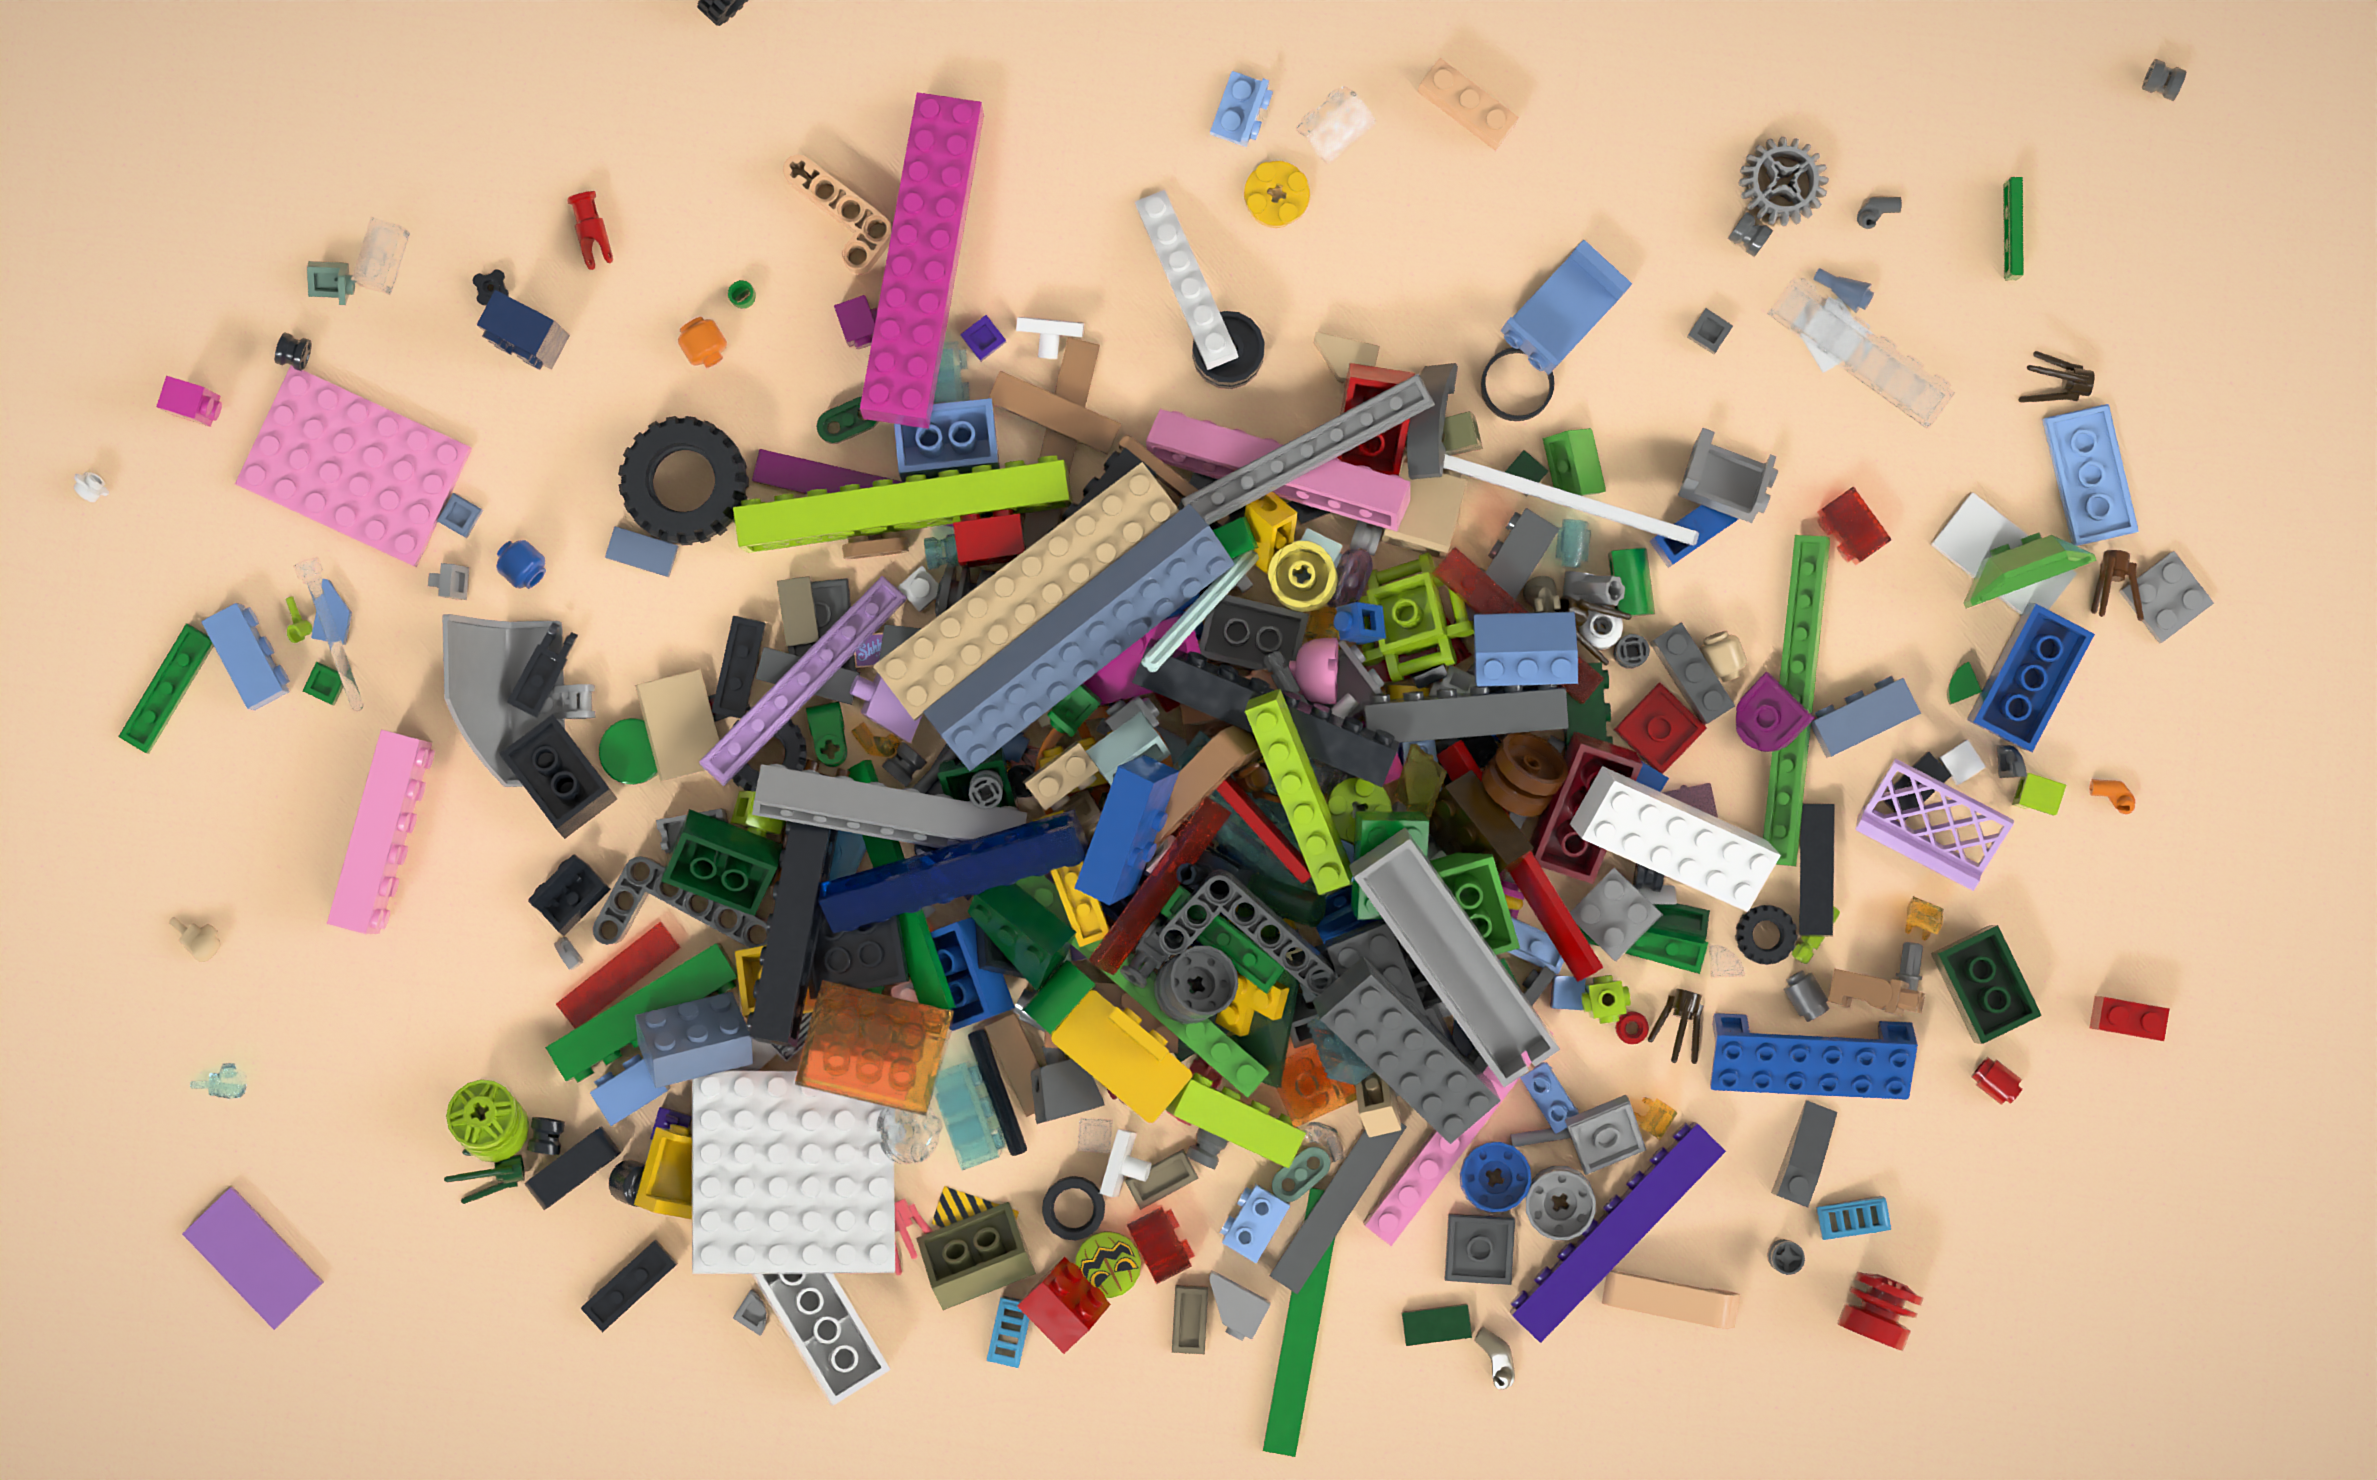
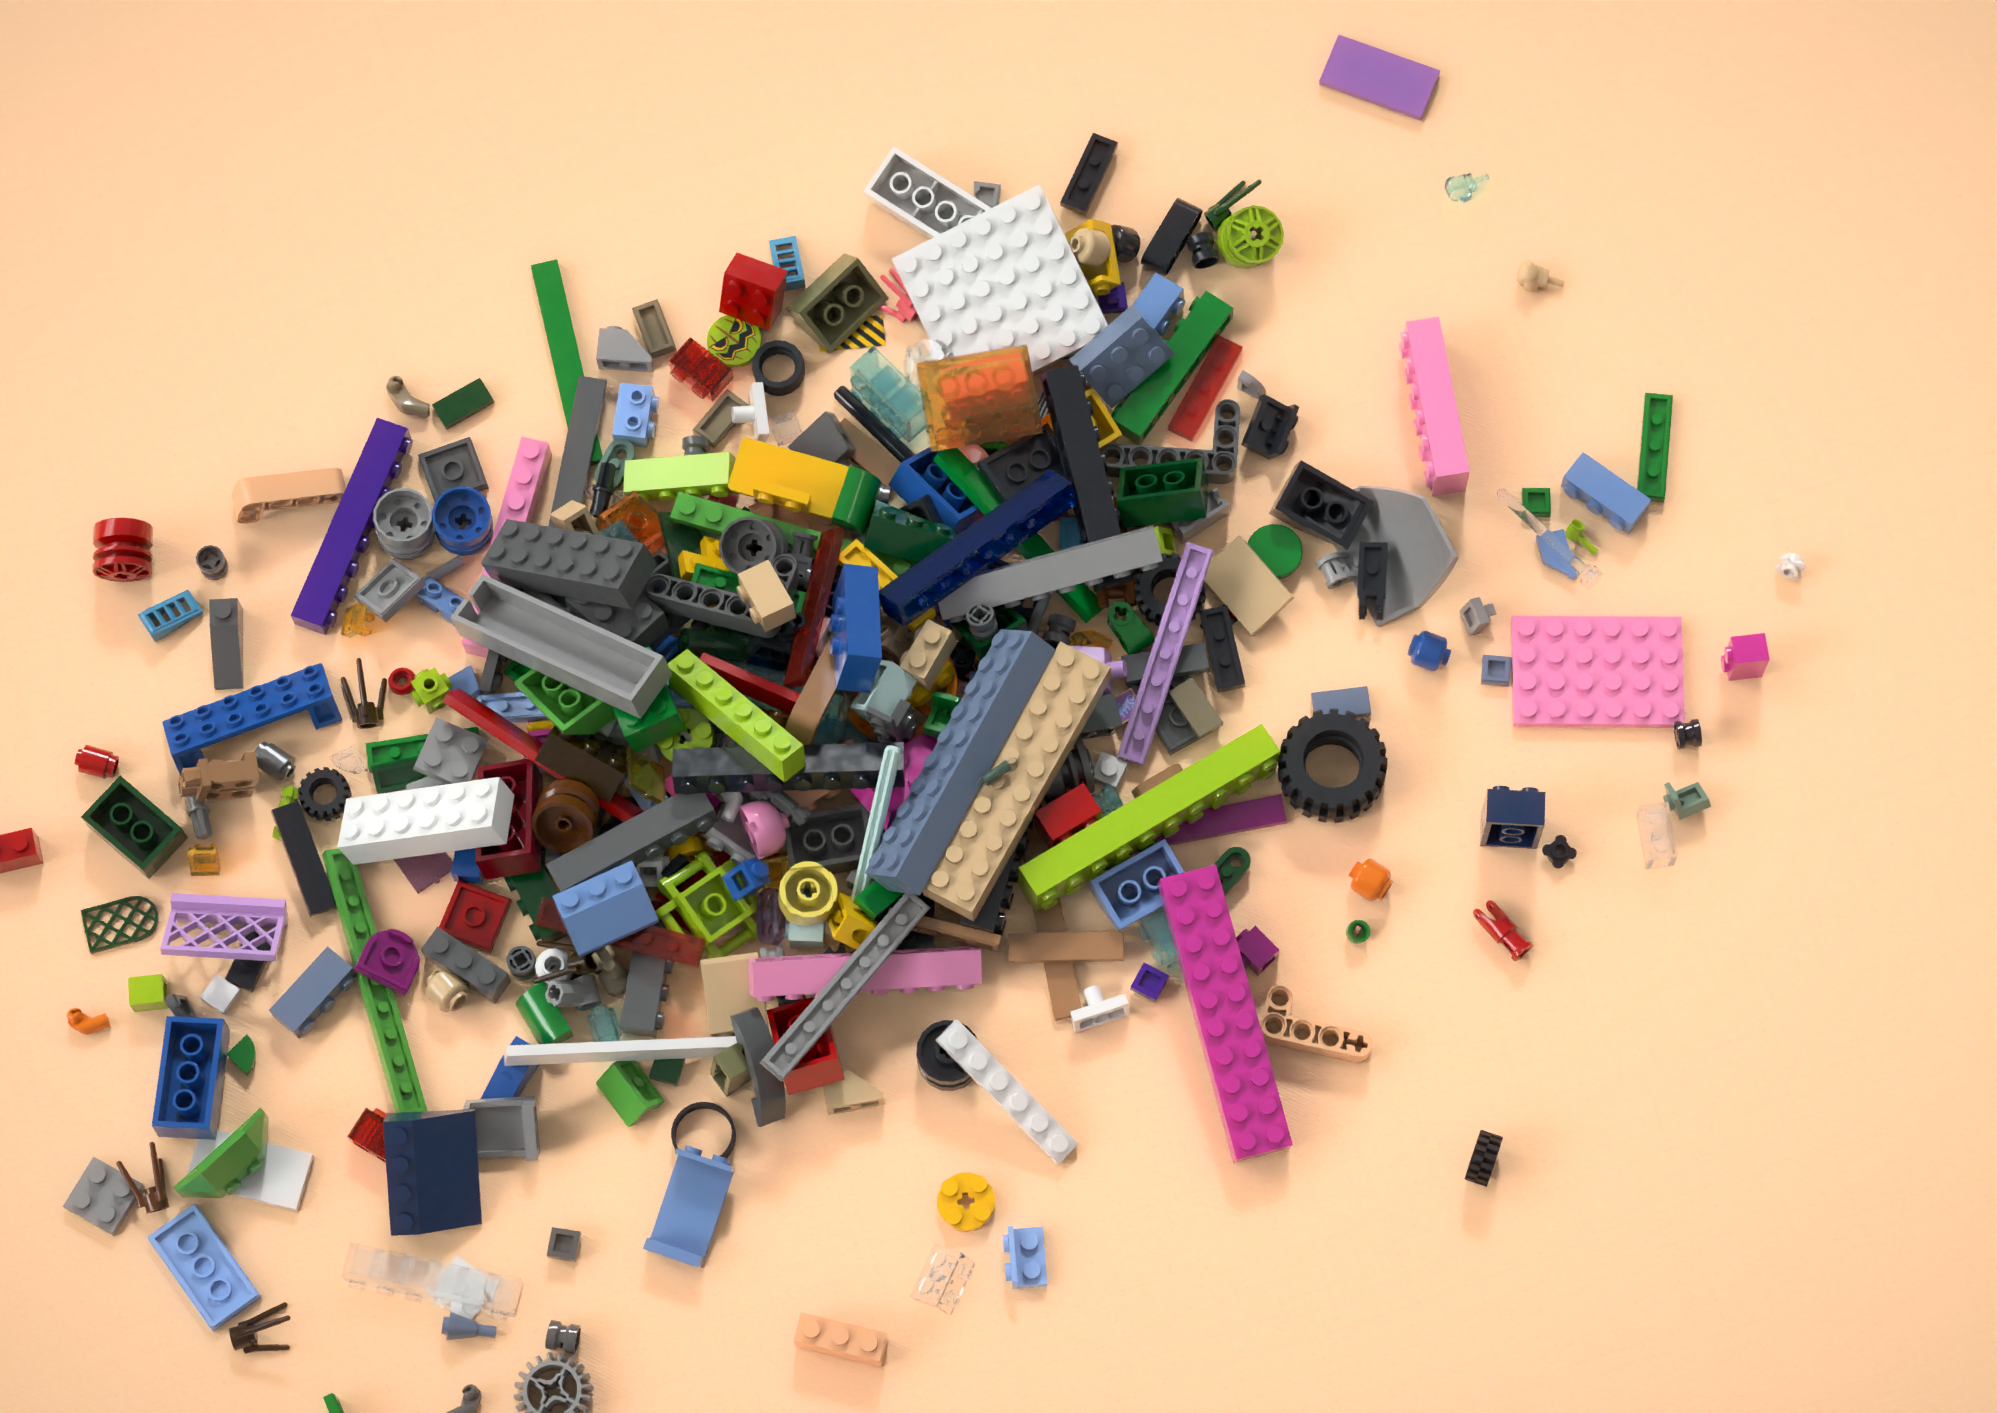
camera: 160 degrees right, 15 degrees down
(670, 1180) = (1090, 246): none -> tan head
(1048, 598) = (996, 773): none -> sand green piece
(1211, 901) = (766, 596): none -> tan brick
(1327, 1144) = (603, 490): none -> black axle
(1819, 459) = (432, 1171): none -> dark blue slope
(2029, 890) = (131, 939): none -> dark green window

